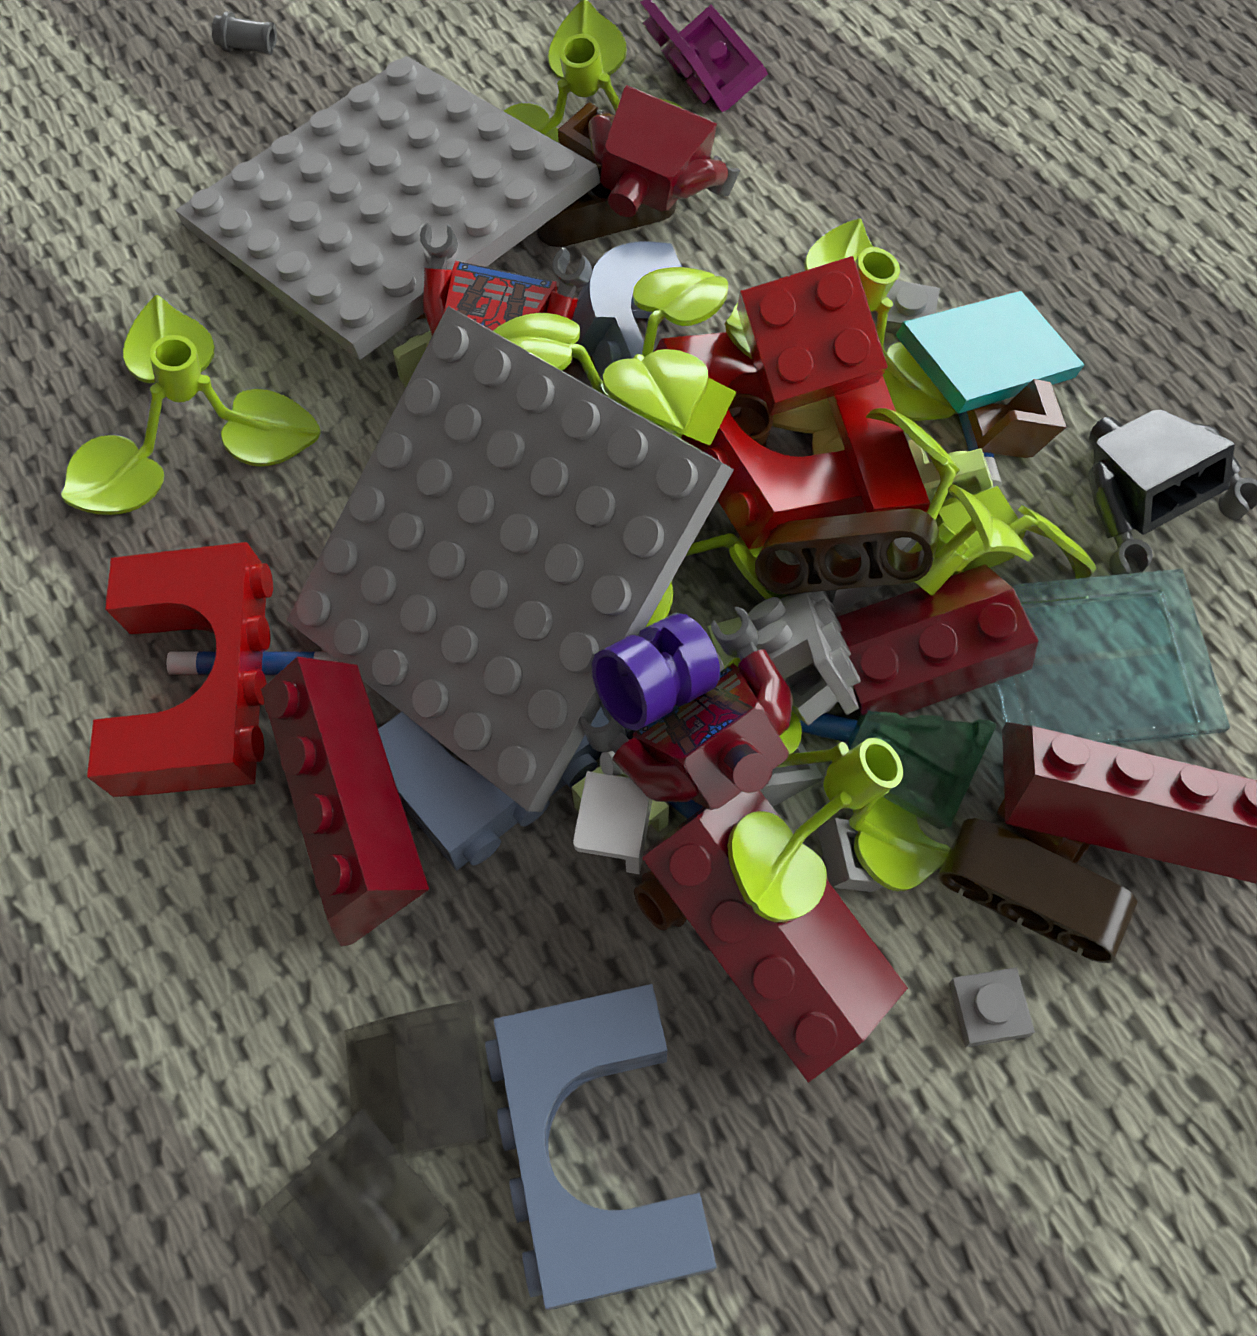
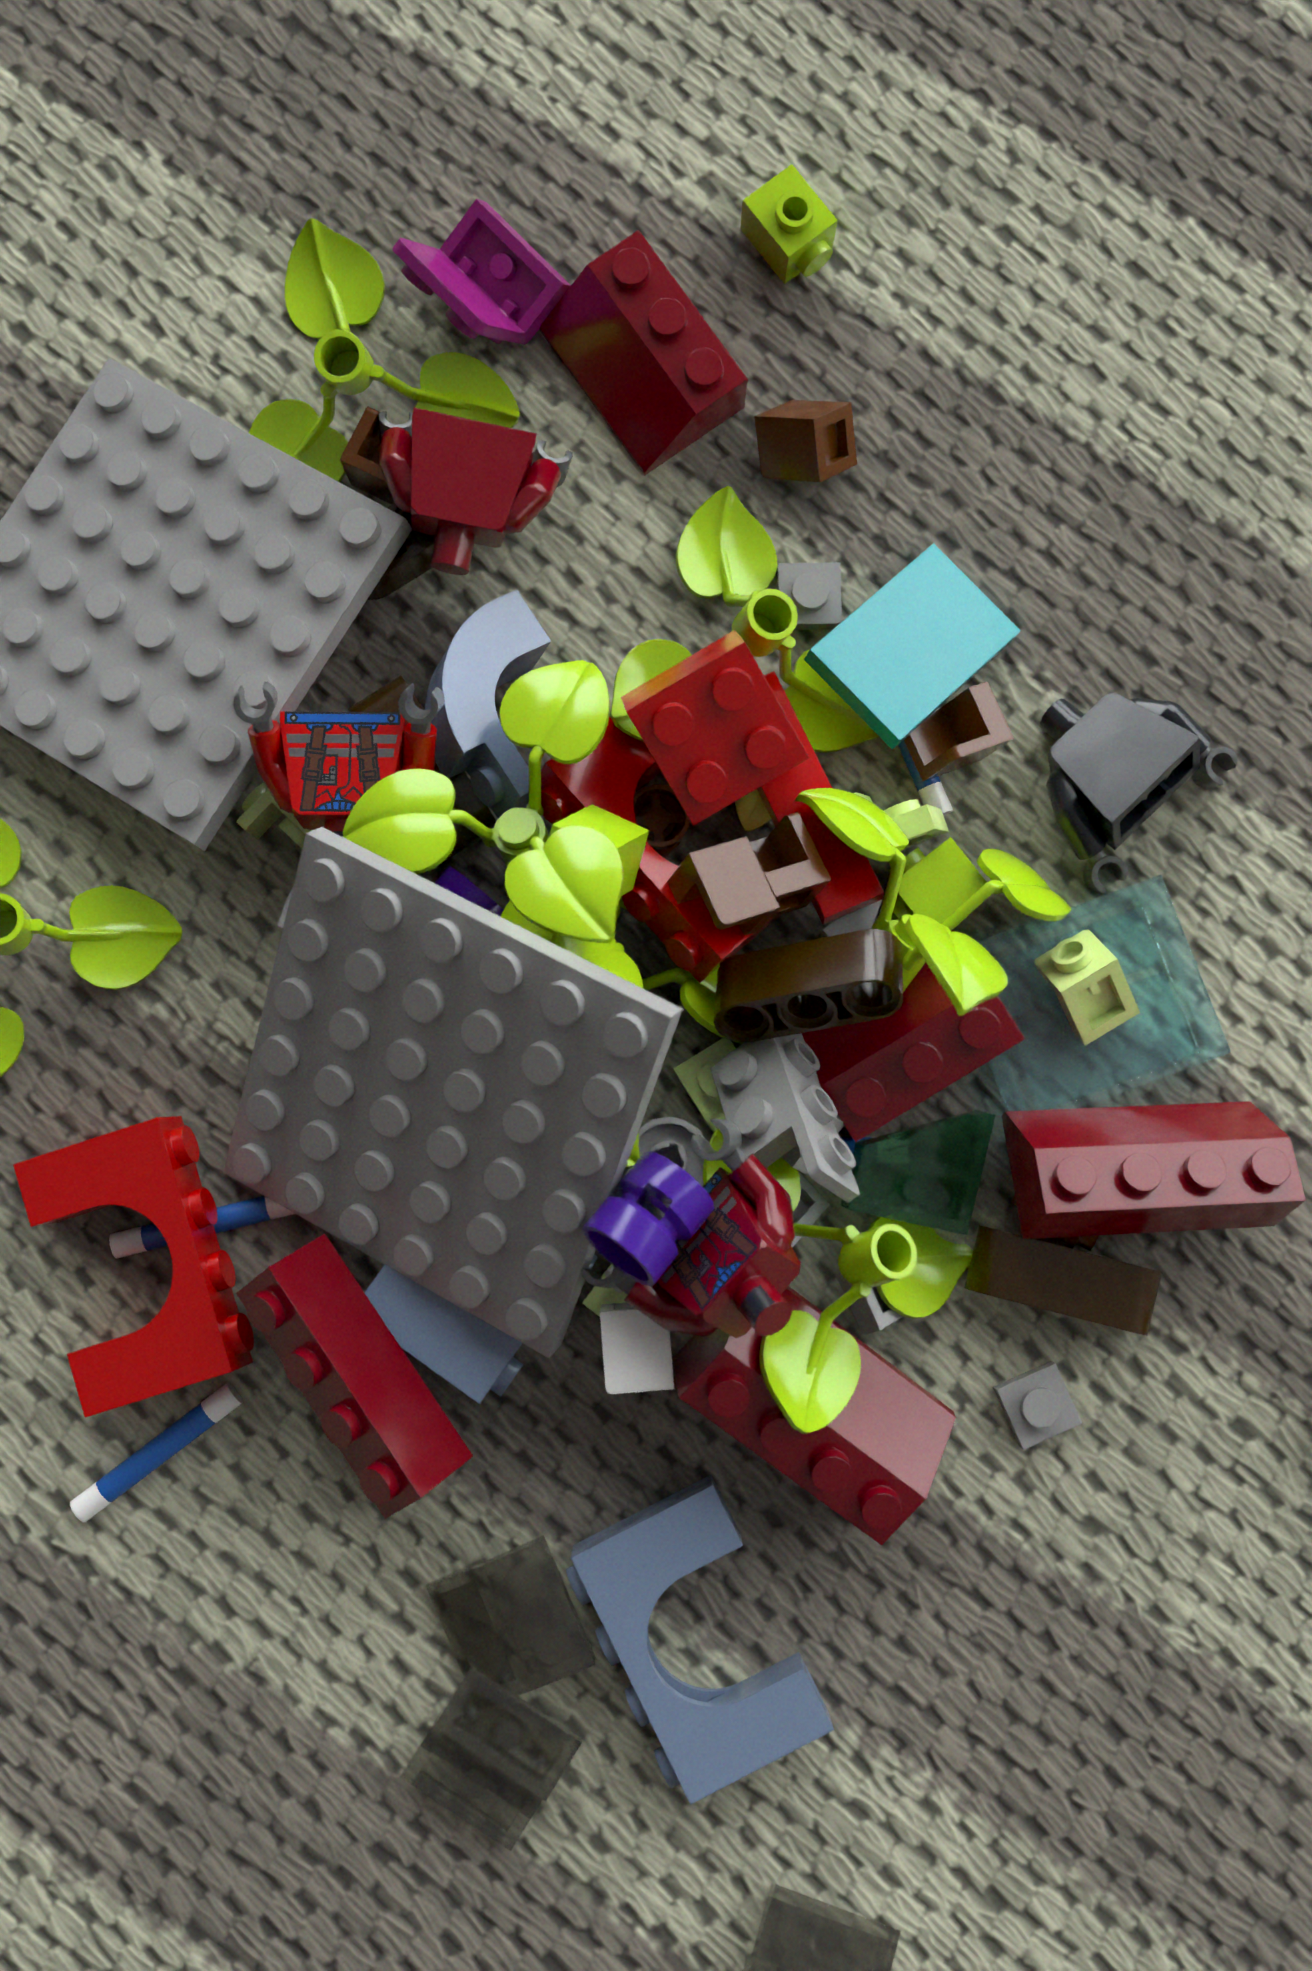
camera: 15 degrees left, 20 degrees up
(137, 843) = (156, 1452): none -> blue bar
(792, 442) = (729, 883): none -> panel
(815, 124) = (644, 354): none -> dark red slope
(842, 469) = (791, 864): none -> reddish brown panel
(930, 200) = (806, 440): none -> reddish brown panel
(945, 67) = (789, 225): none -> lime brick
(1104, 637) = (1088, 985): none -> yellowish green bracket

